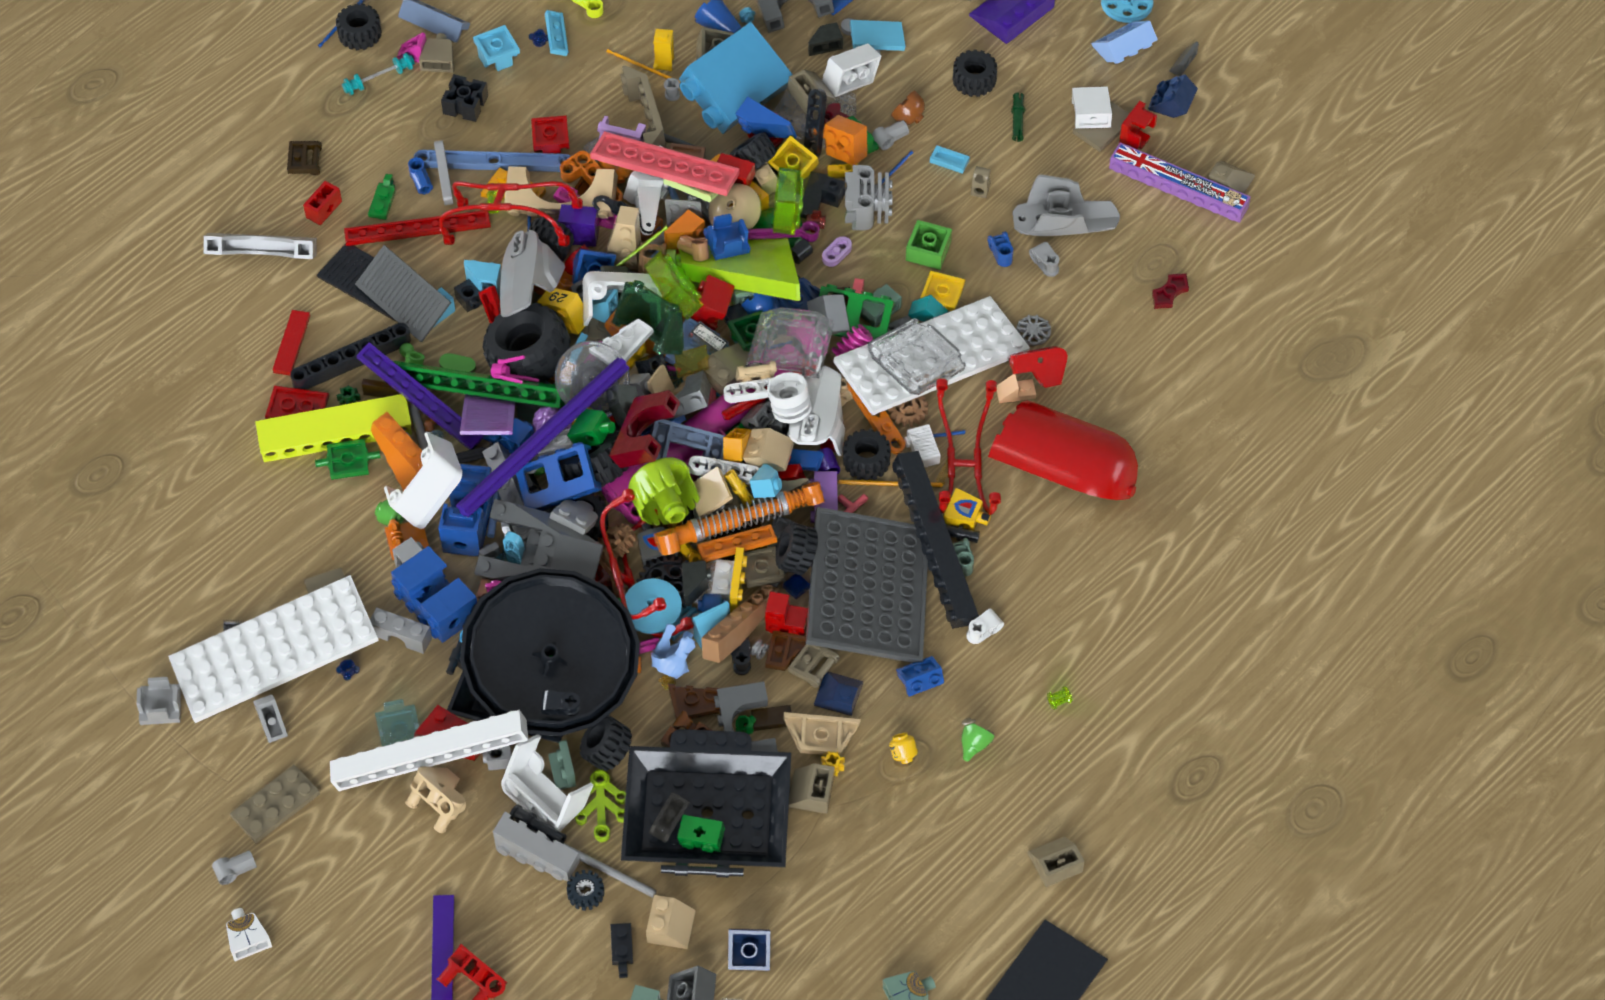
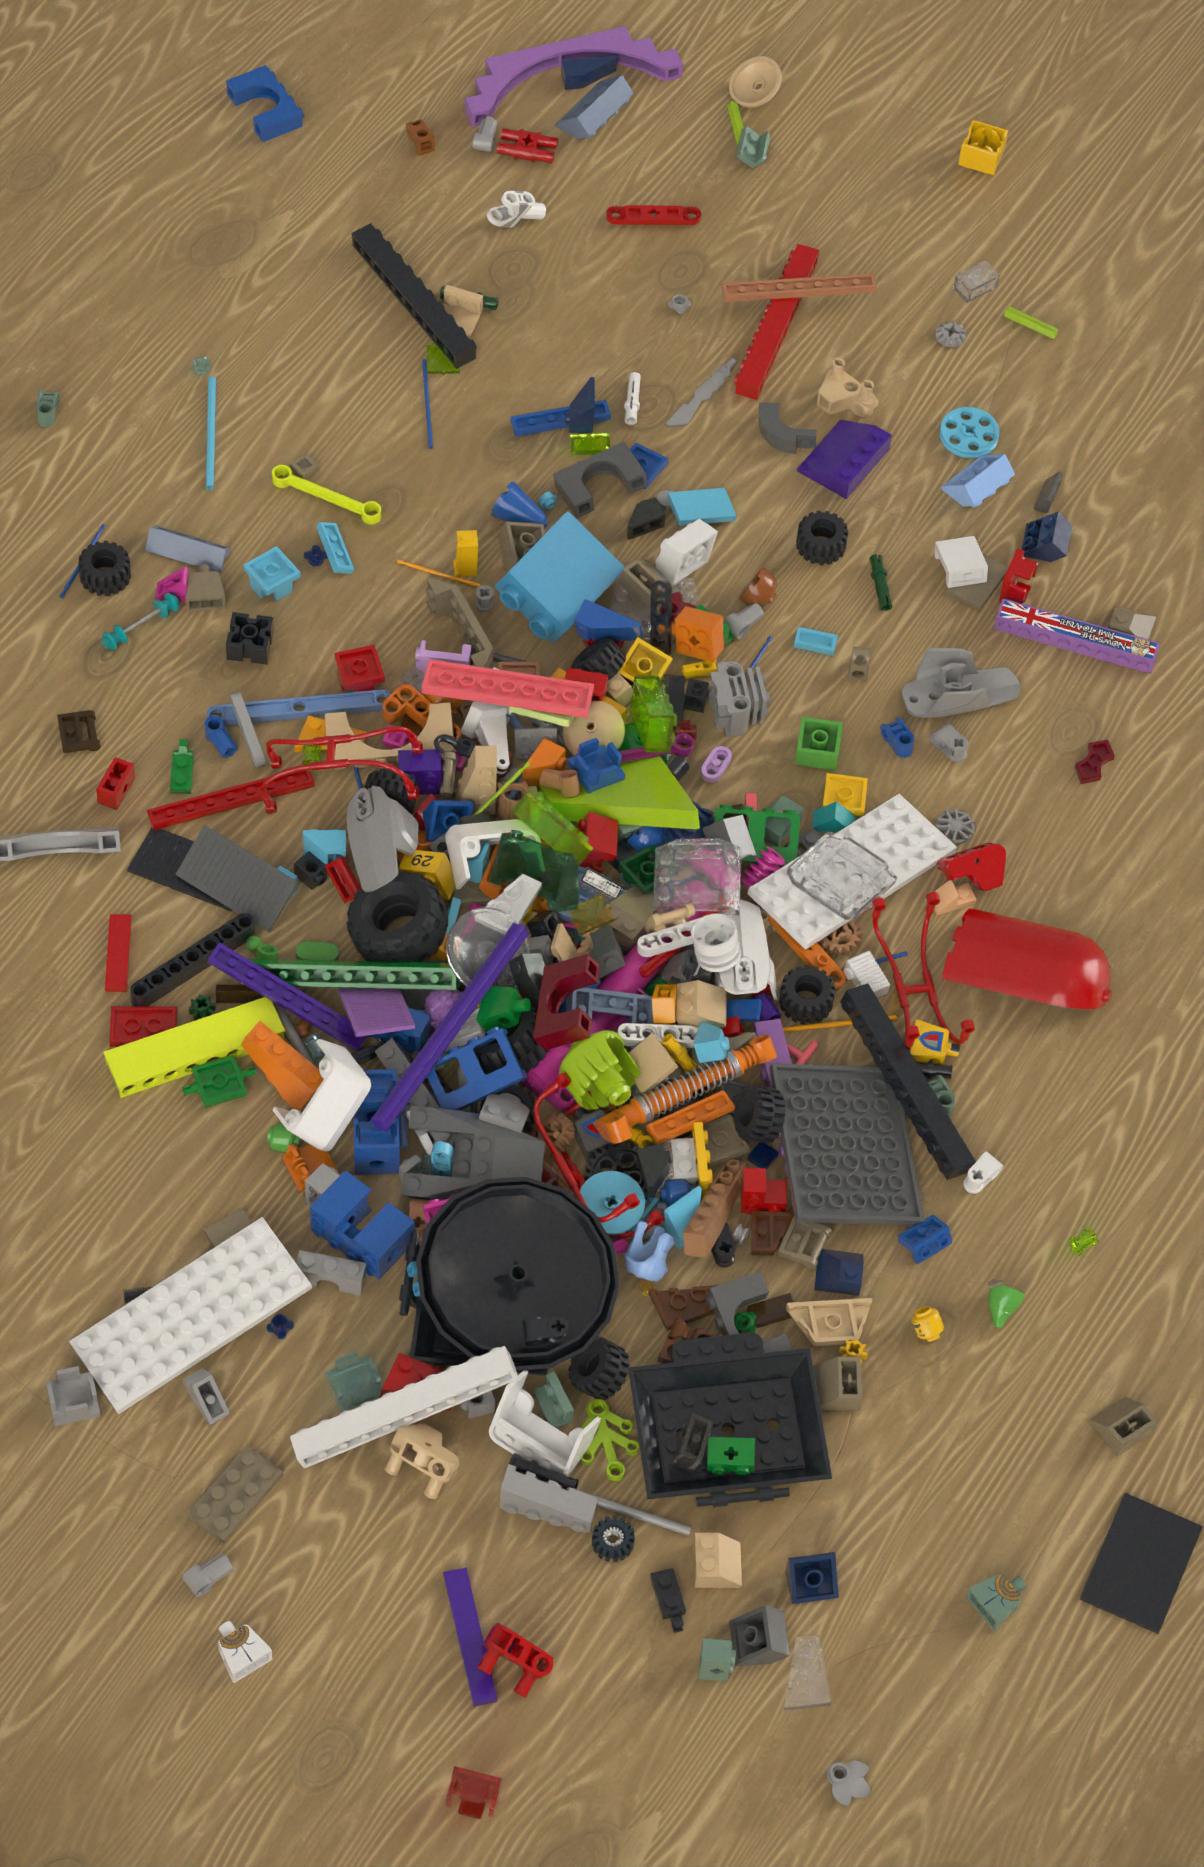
camera: 15 degrees left, 0 degrees up
(502, 371) = (380, 956): dark pink plant -> none
(602, 231) = (449, 772): none -> dark tan plate

